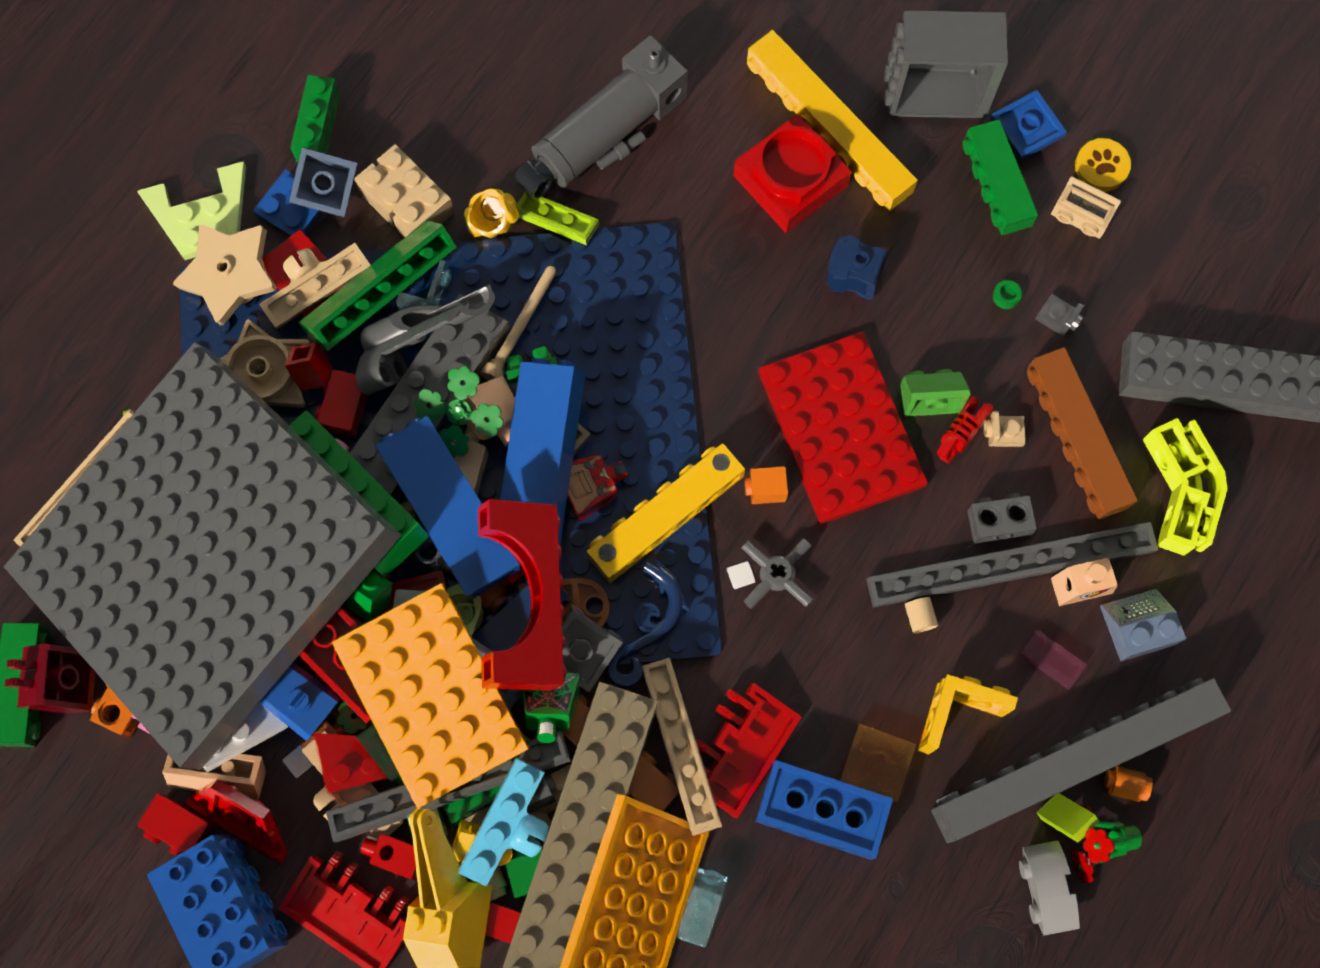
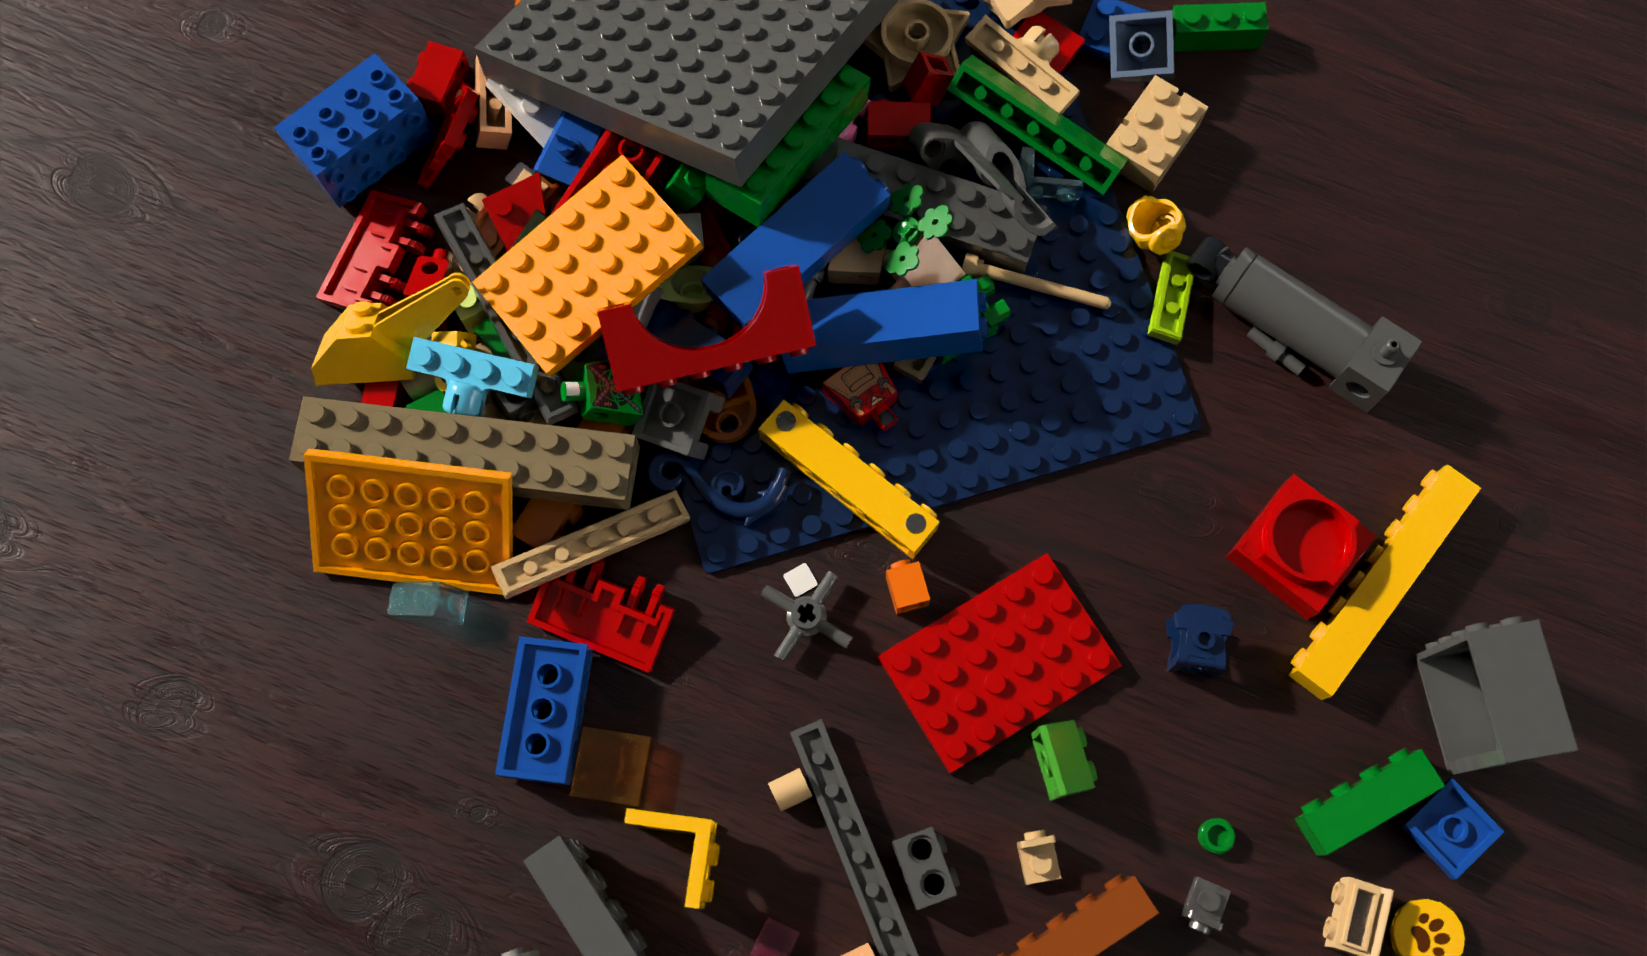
camera: 80 degrees right, 0 degrees up
(963, 429) = (1027, 805): red hinge -> none

